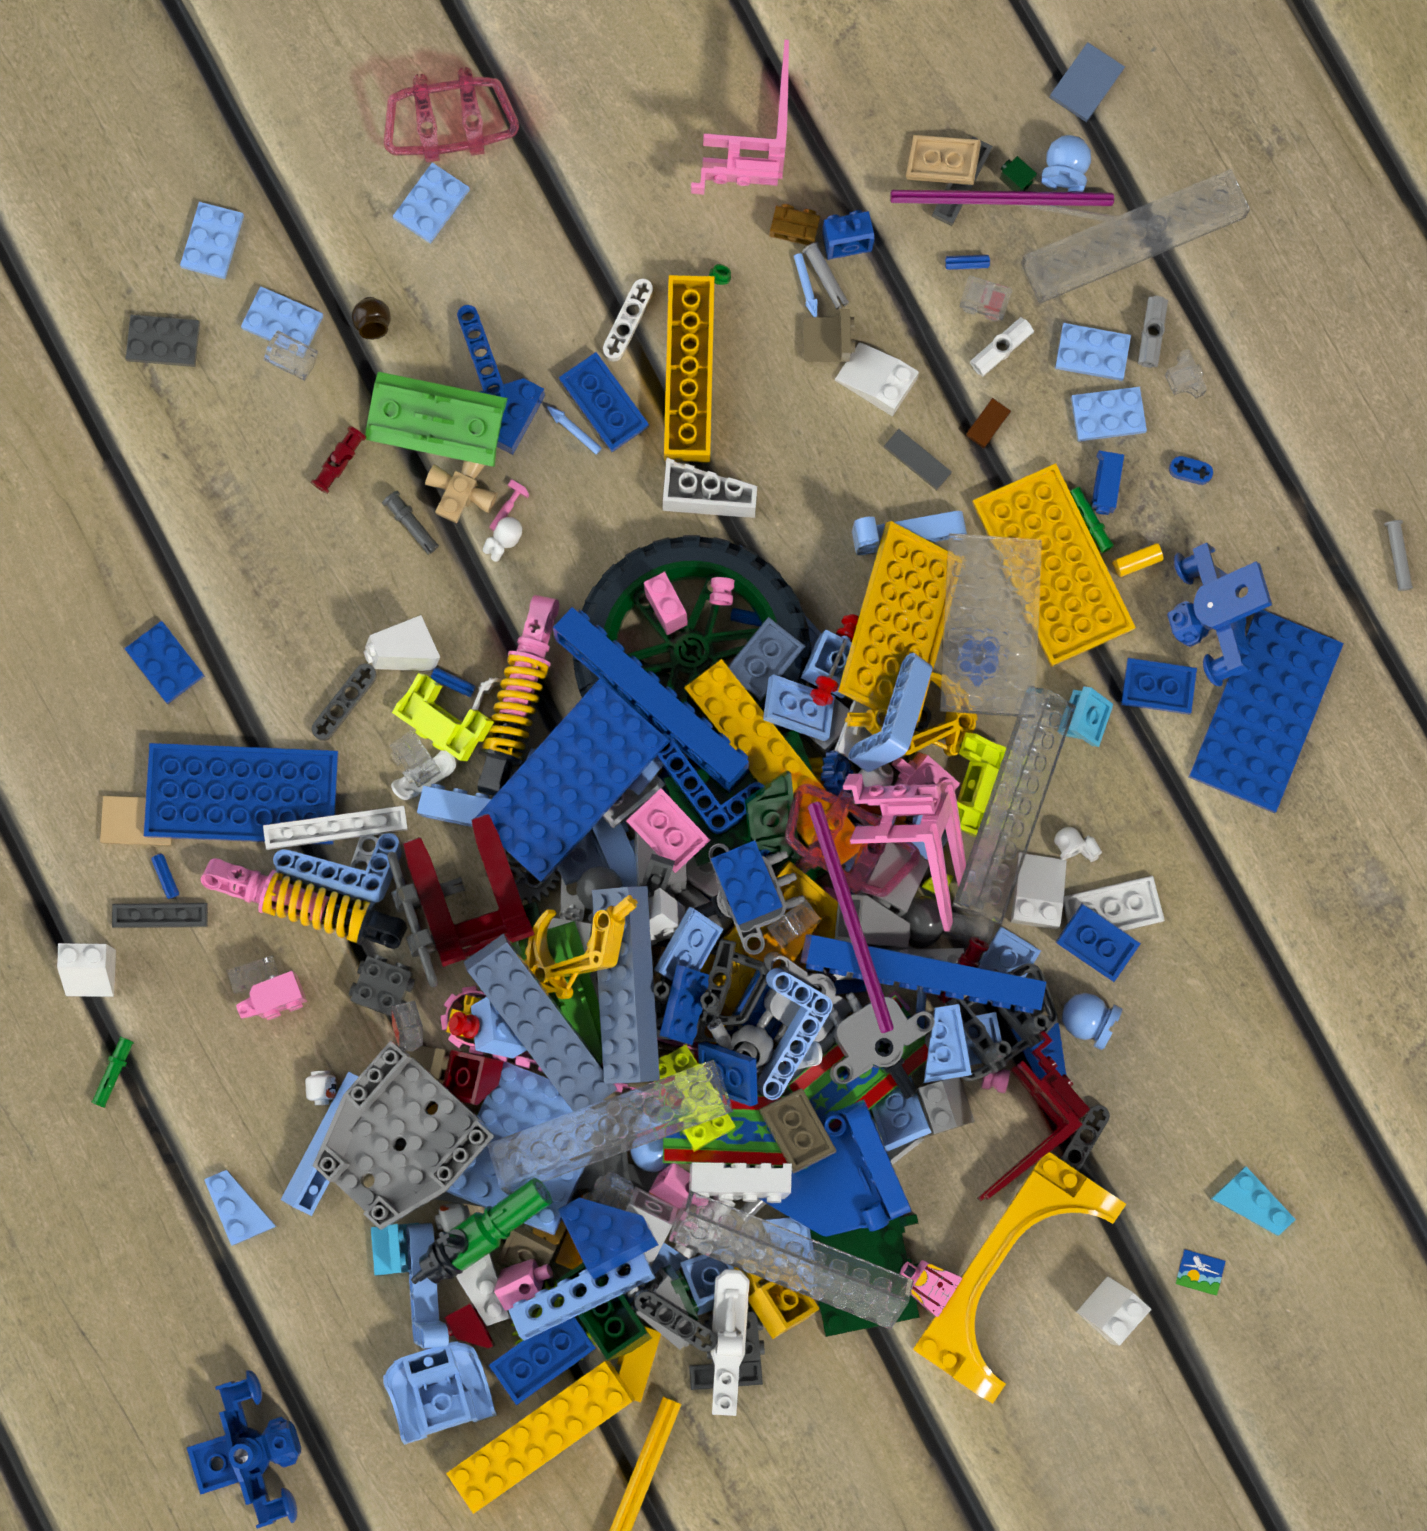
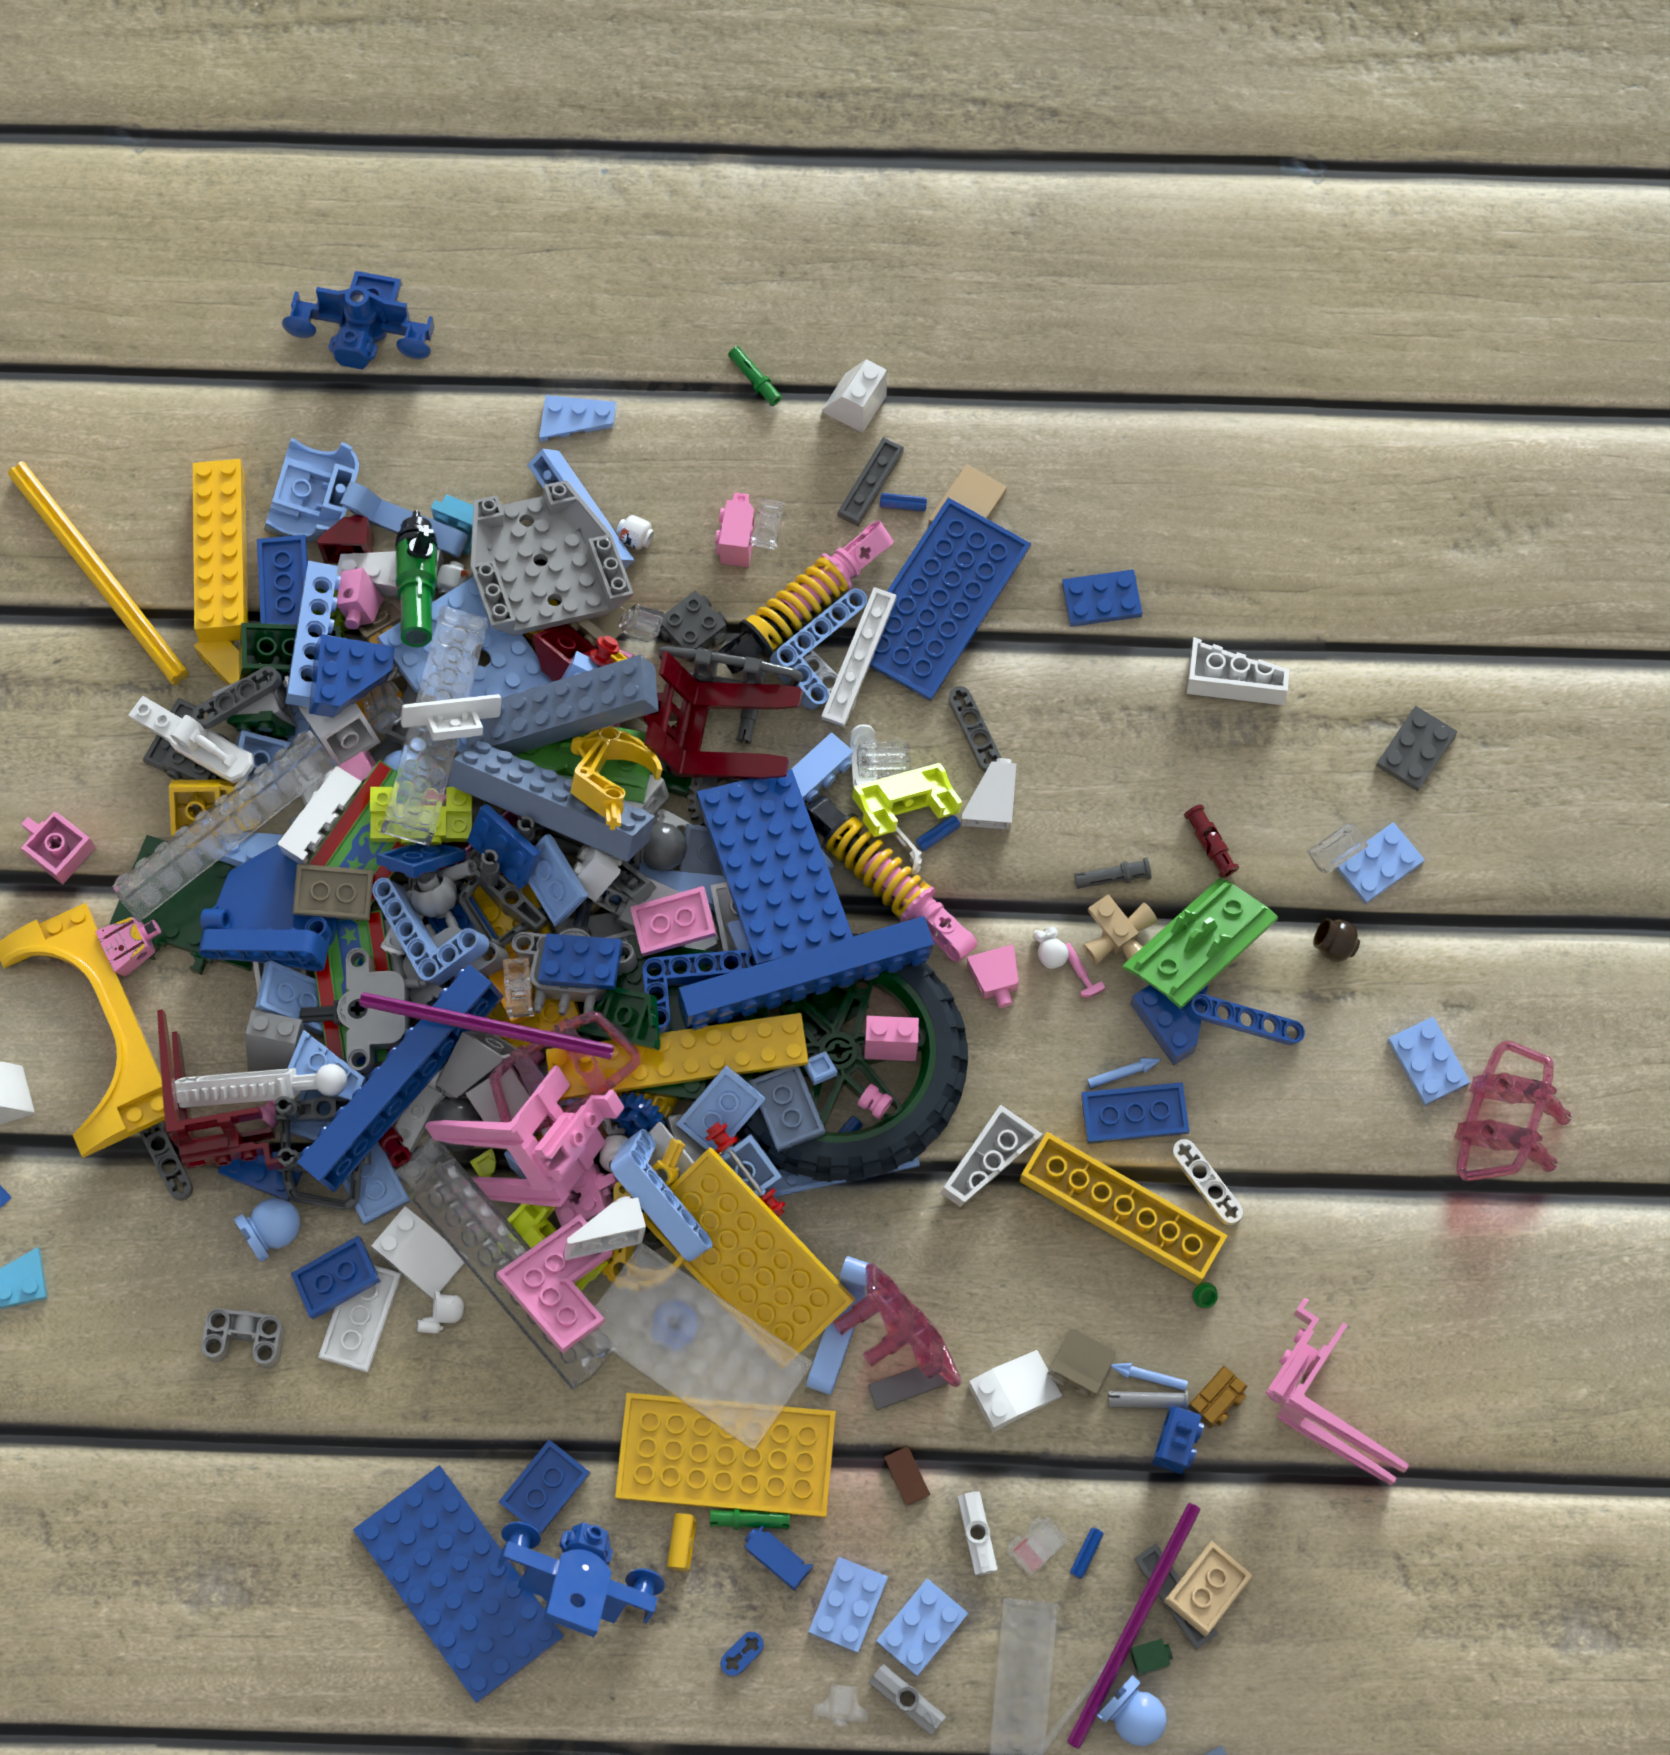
camera: 125 degrees right, 10 degrees down
(182, 519) = (1234, 676): none -> white wedge
(212, 240) = (1495, 841): light blue plate -> none
(550, 569) = (995, 974): none -> bright pink torso
(605, 1105) = (452, 717): none -> white bracket
(716, 651) = (820, 1068): none -> light blue tile
(883, 472) = (904, 1326): none -> clear pink piece
(892, 1415) = (54, 832): none -> bright pink hinge
(947, 730) = (612, 1229): none -> white slope
(992, 1089) = (257, 1086): none -> white gear
(1018, 761) = (547, 1291): none -> bright pink plate
(1089, 716) = (554, 1397): medium azure bracket -> none
(1175, 992) = (245, 1327): none -> light grey beam

